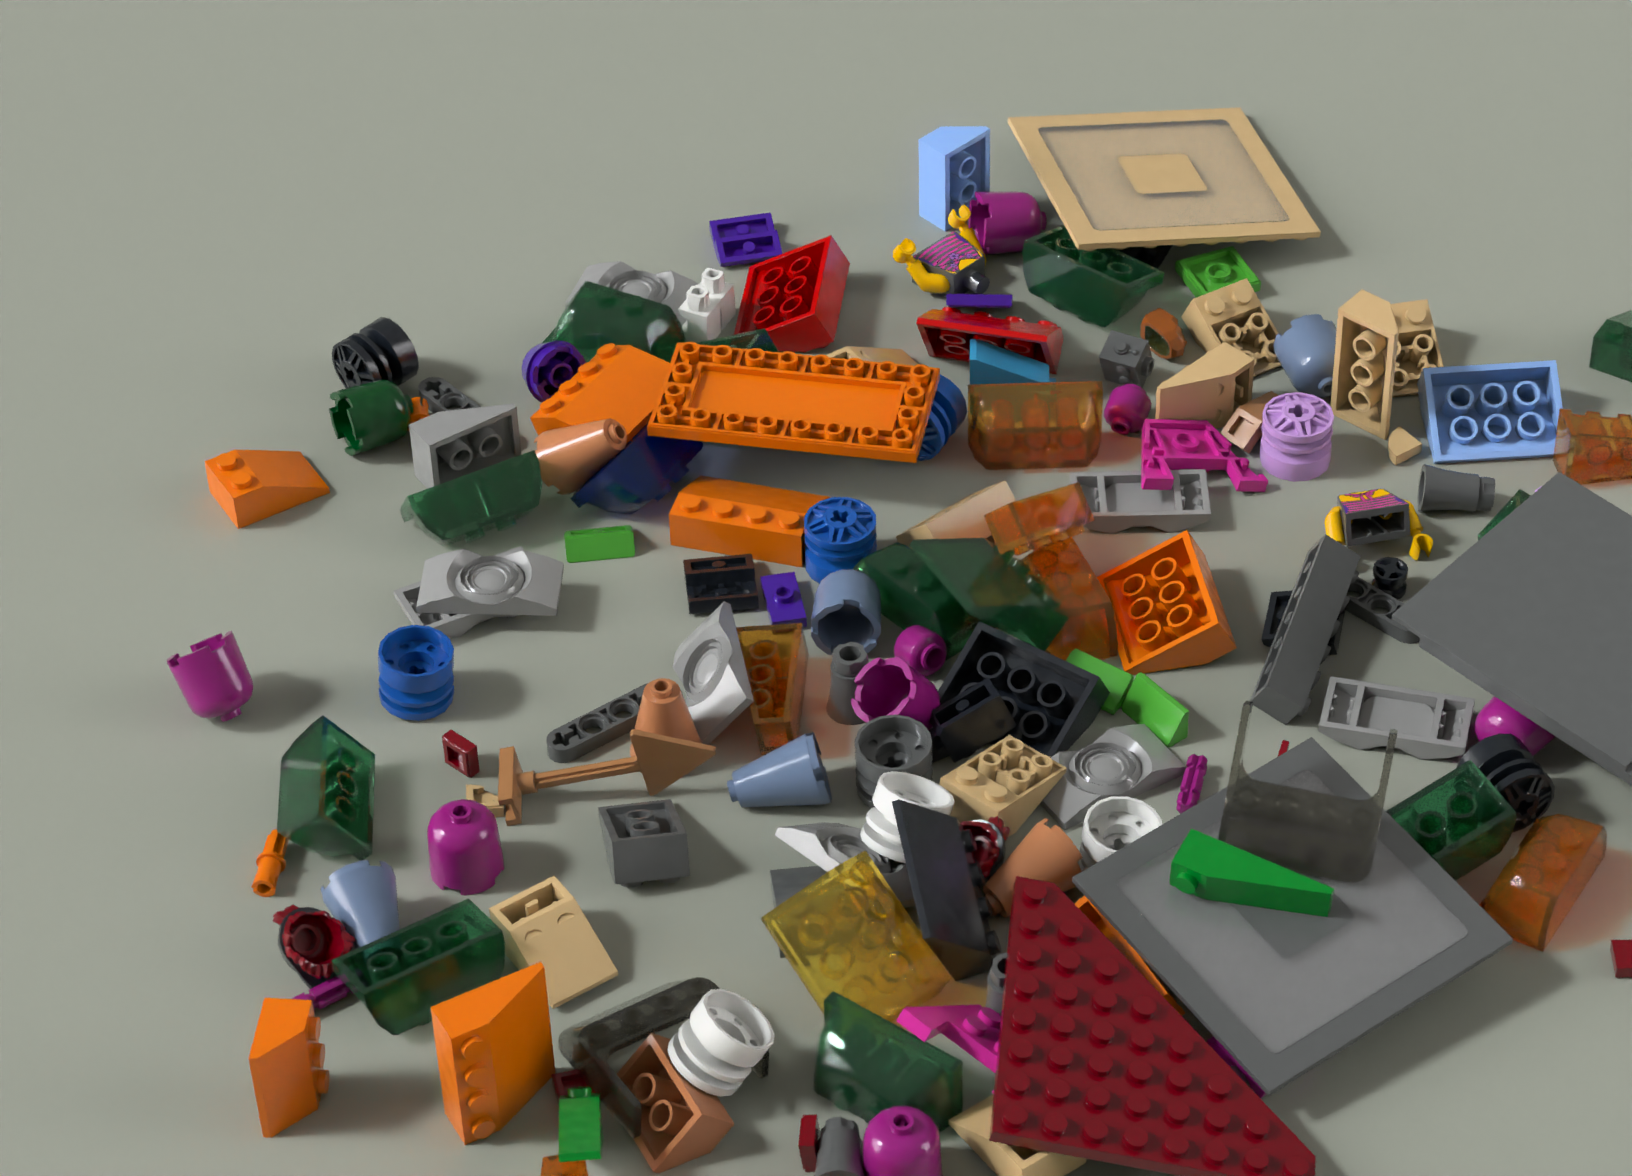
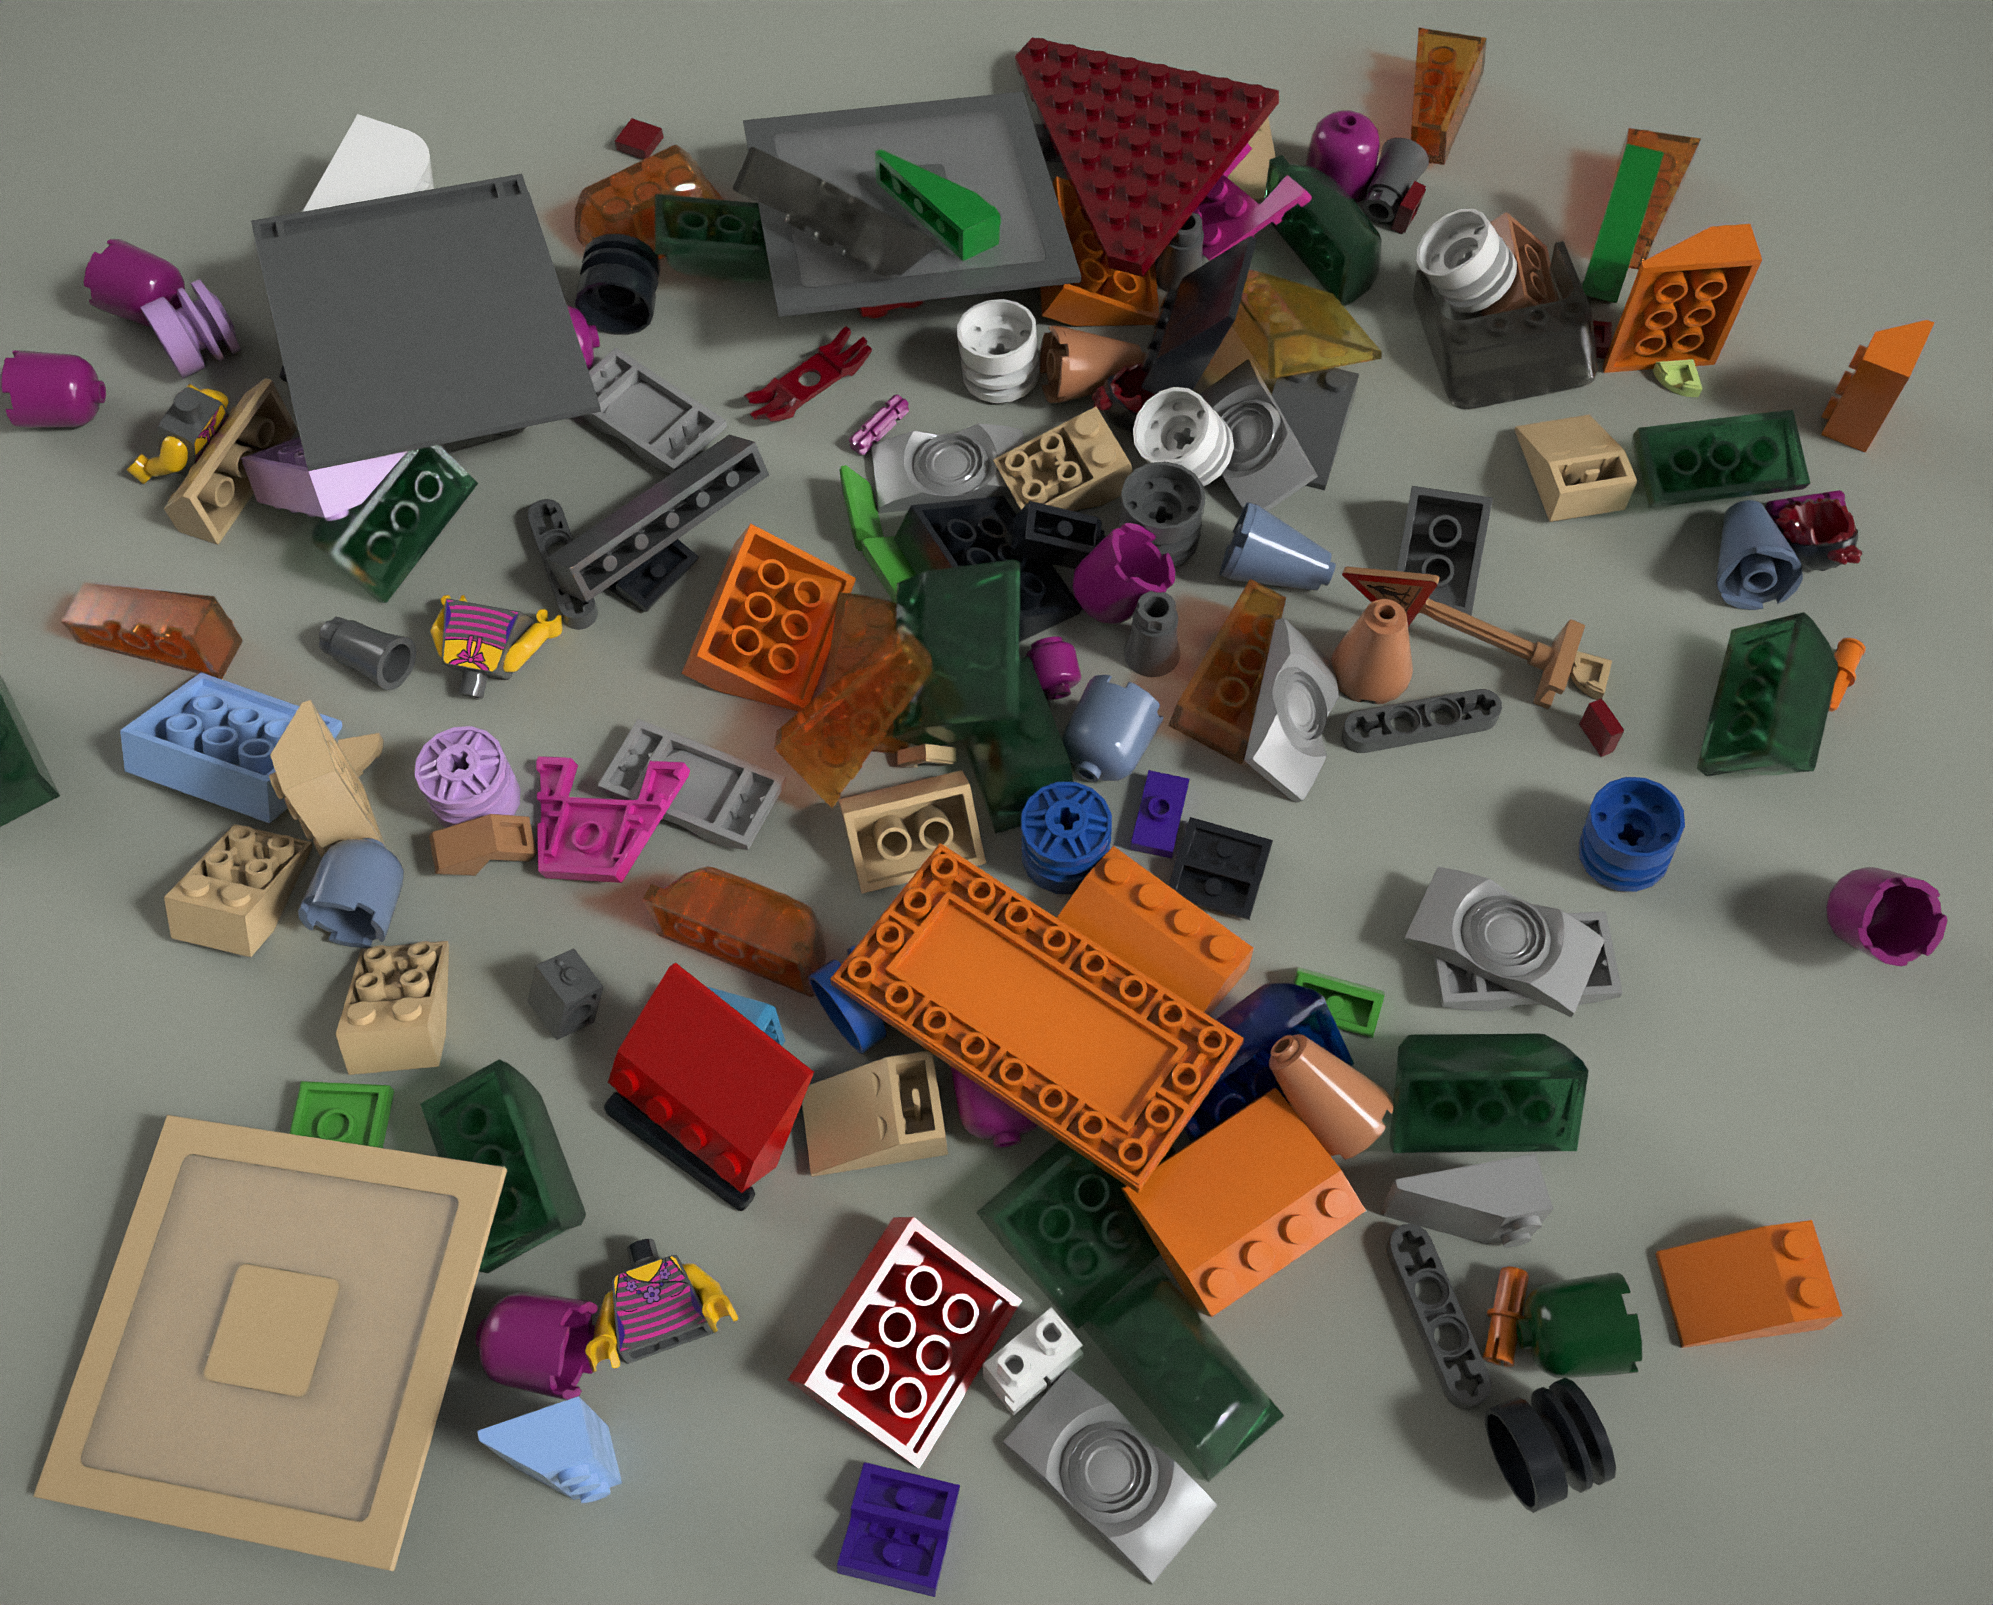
camera: 155 degrees left, 20 degrees up
(464, 847) = (1634, 591): magenta cylinder -> none
(549, 366) = (1300, 1312): dark purple cone -> none
(980, 300) = (674, 1179): dark purple tile -> none
(1127, 409) = (613, 927): magenta head -> none
(1163, 334) = (480, 1038): dark orange rock -> none
(1208, 387) = (519, 885): tan slope -> none
(1390, 576) = (524, 564): black wheel -> none

